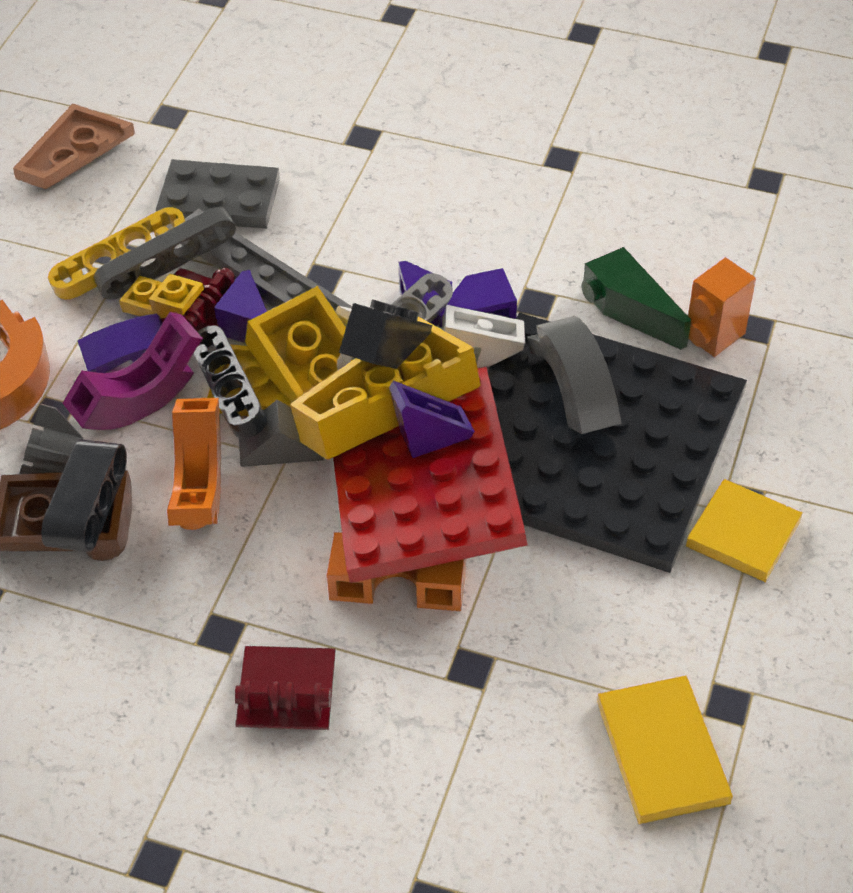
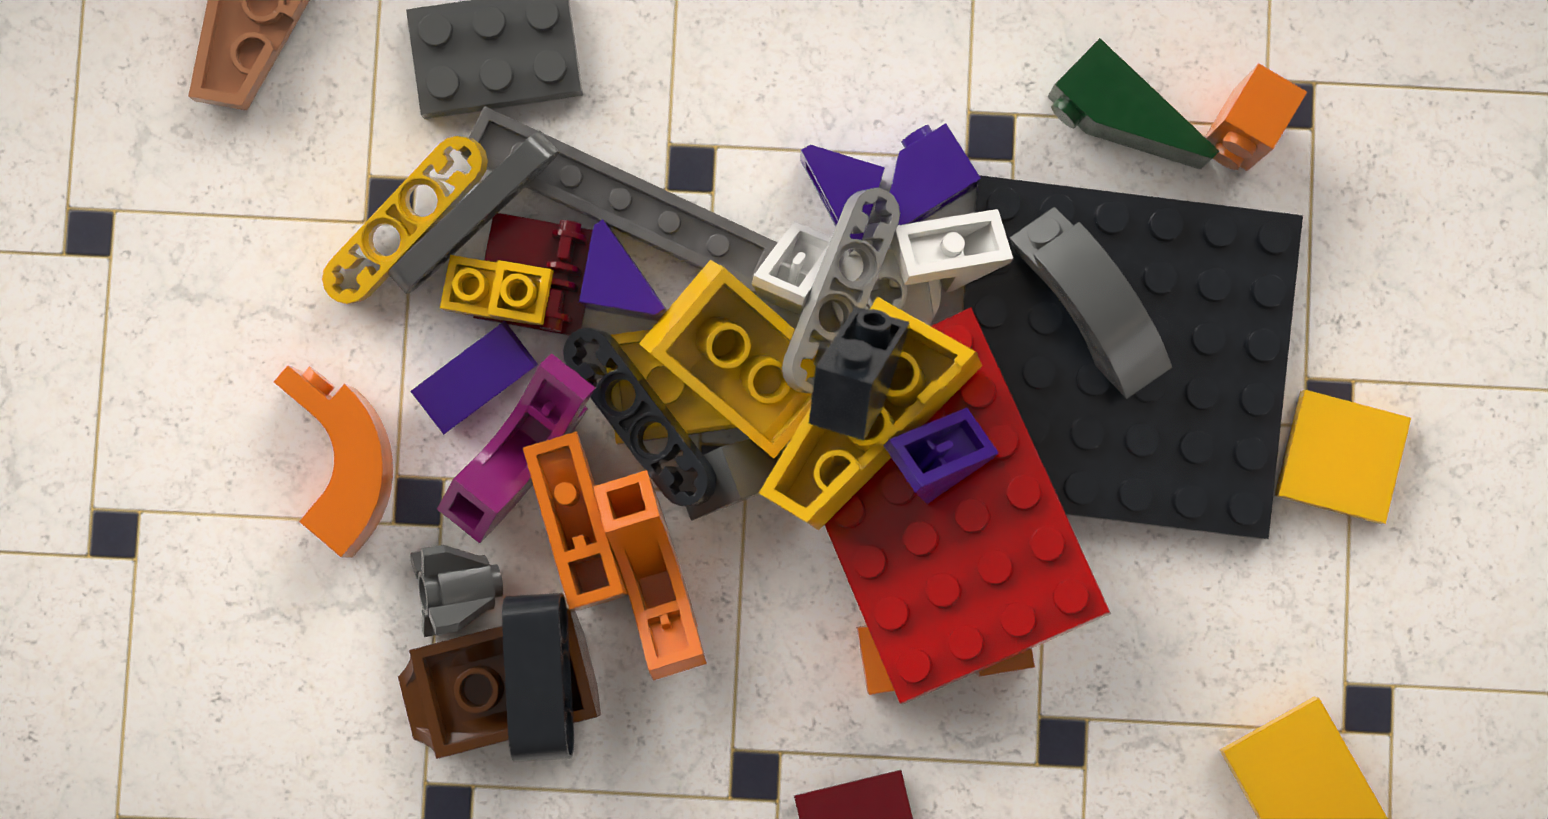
camera: 15 degrees left, 35 degrees up
(151, 431) = (574, 522): none -> orange slope

